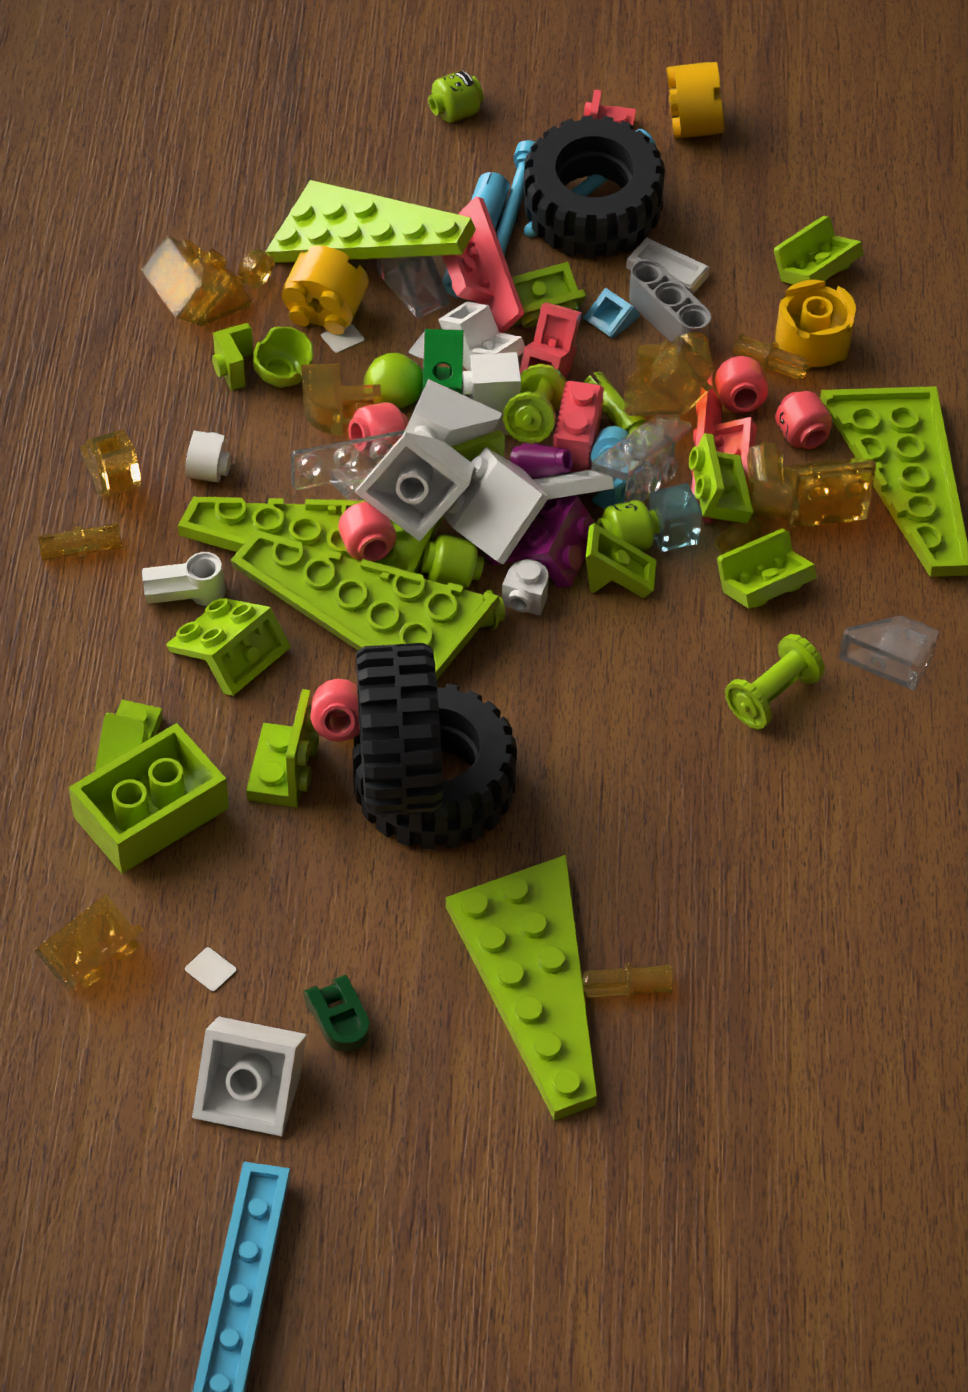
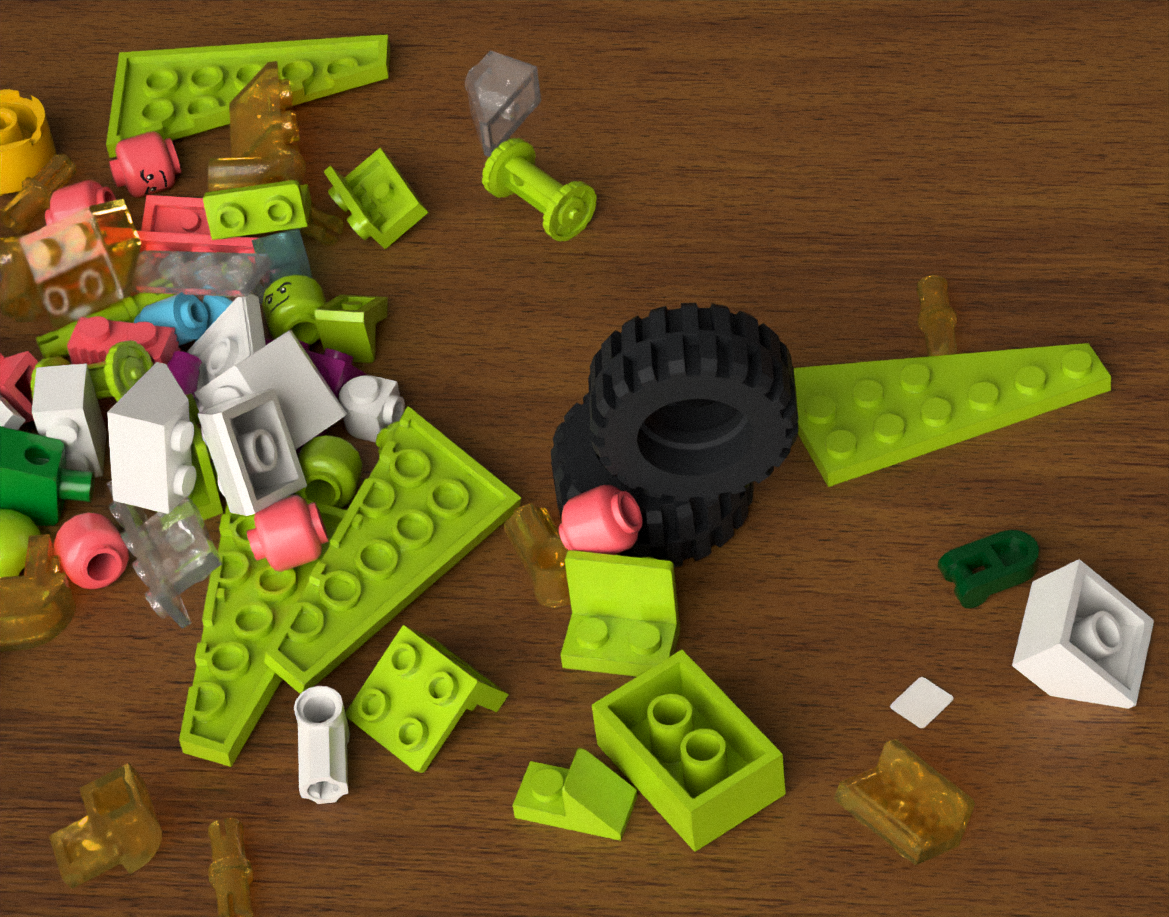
camera: 80 degrees left, 5 degrees down
(207, 457) = (107, 732): white plate -> none

